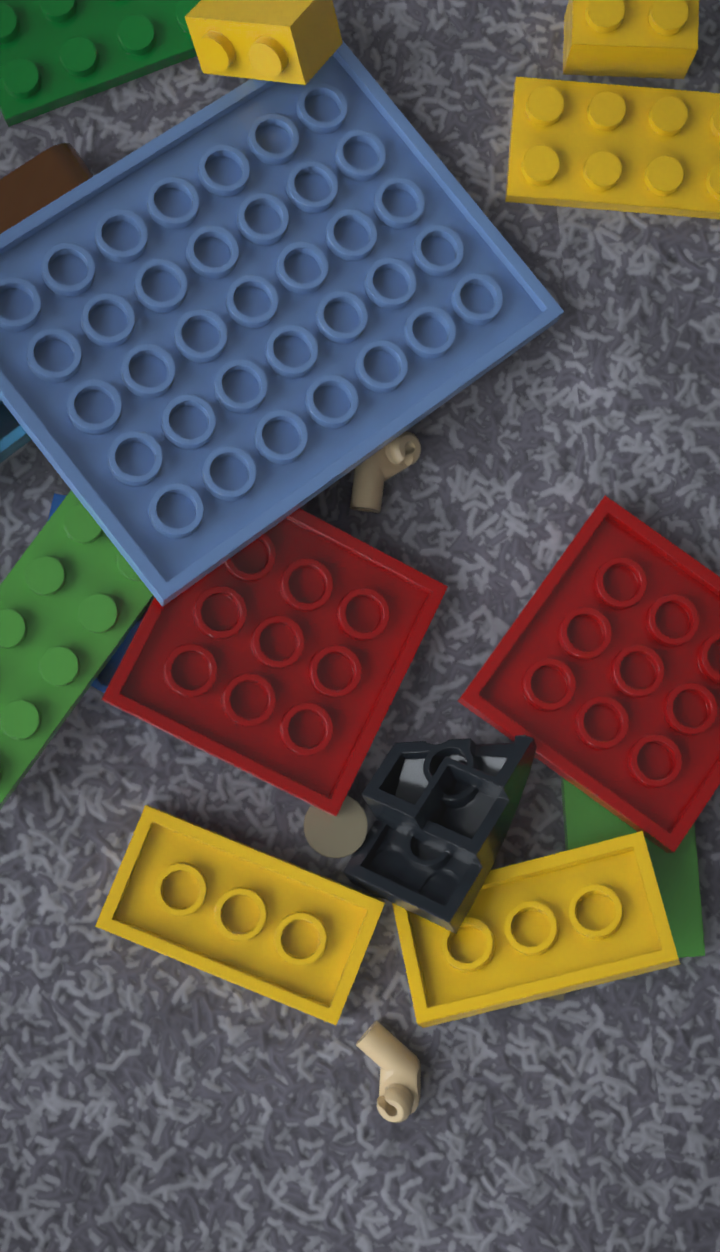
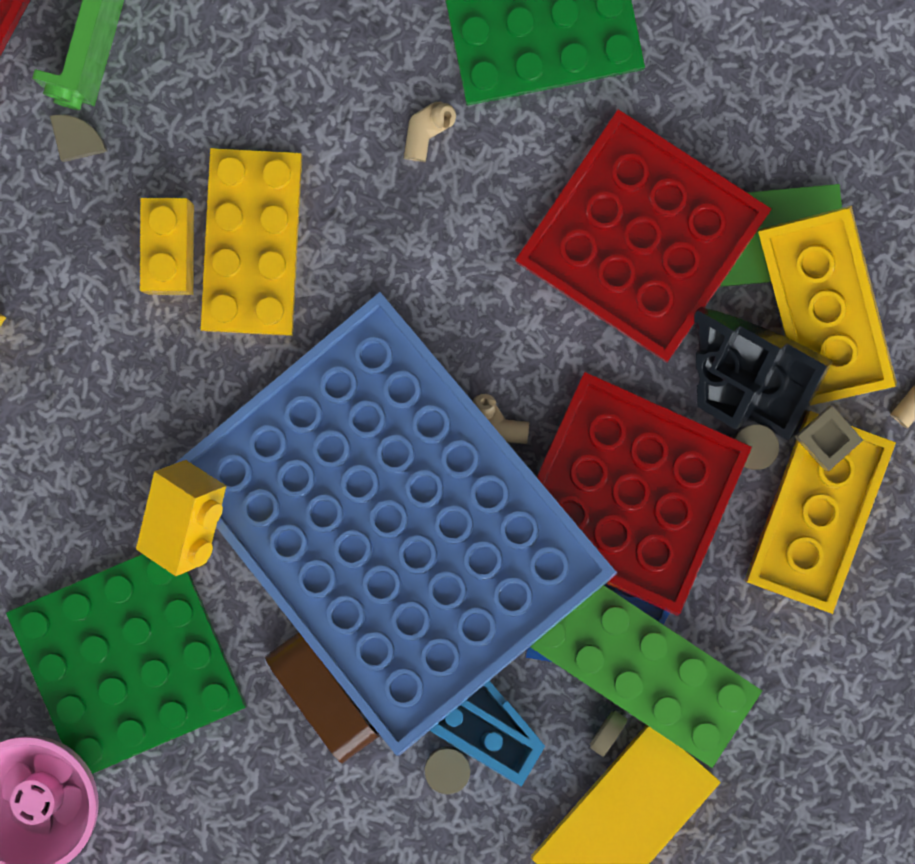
camera: 90 degrees left, 5 degrees up
(345, 925) = (828, 438): none -> dark tan plate

